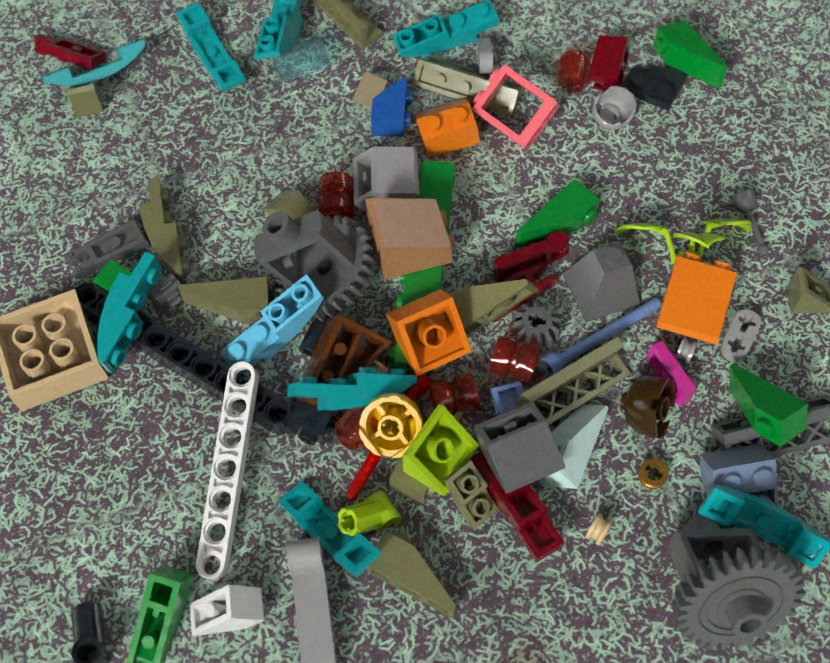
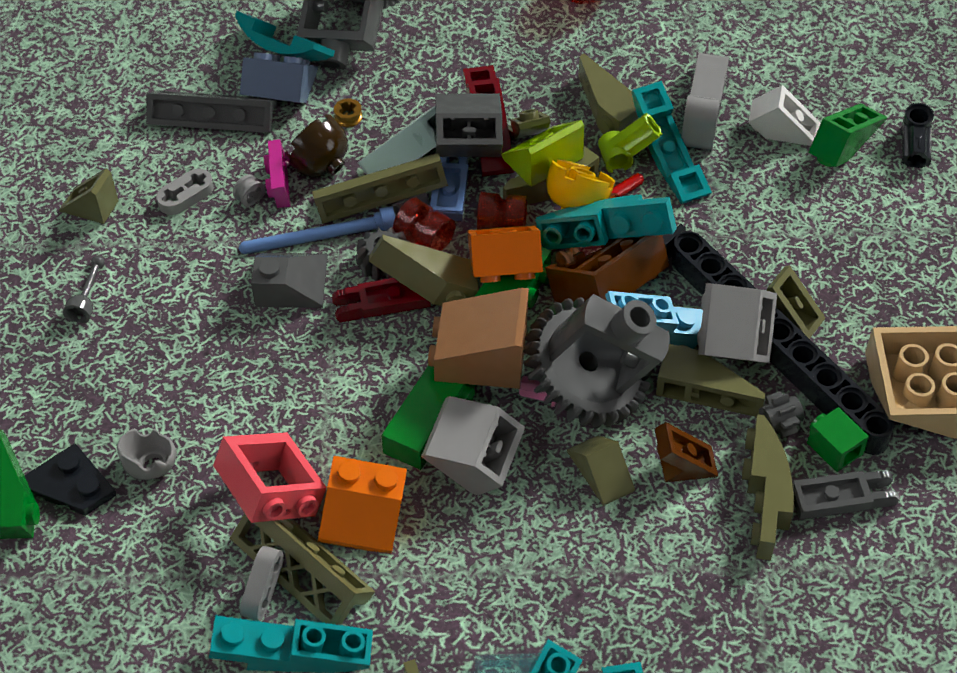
camera: 160 degrees left, 10 degrees down
(119, 316) = (832, 372): teal slope -> none
(177, 393) = (796, 302): none -> olive slope
(211, 325) = (737, 323): none -> light grey slope
(231, 232) = (683, 455): none -> reddish brown slope
(231, 484) = (752, 224): white beam -> none
(336, 195) = (541, 453): clear red wheel -> none
(368, 88) = (434, 598): dark tan slope -> none
(389, 110) = (422, 551): blue slope -> none
(547, 250) = (348, 320): dark red hinge -> none
(564, 213) = (291, 352): green slope -> none
(573, 70) = (160, 524): clear red head -> none
(599, 529) = (423, 84): tan bush -> none
(609, 61) = (106, 519): dark red hinge -> none
(696, 298) = (218, 200): orange slope -> none
(704, 239) = (182, 217): lime plant -> none
(767, 407) = (220, 98): green slope -> none

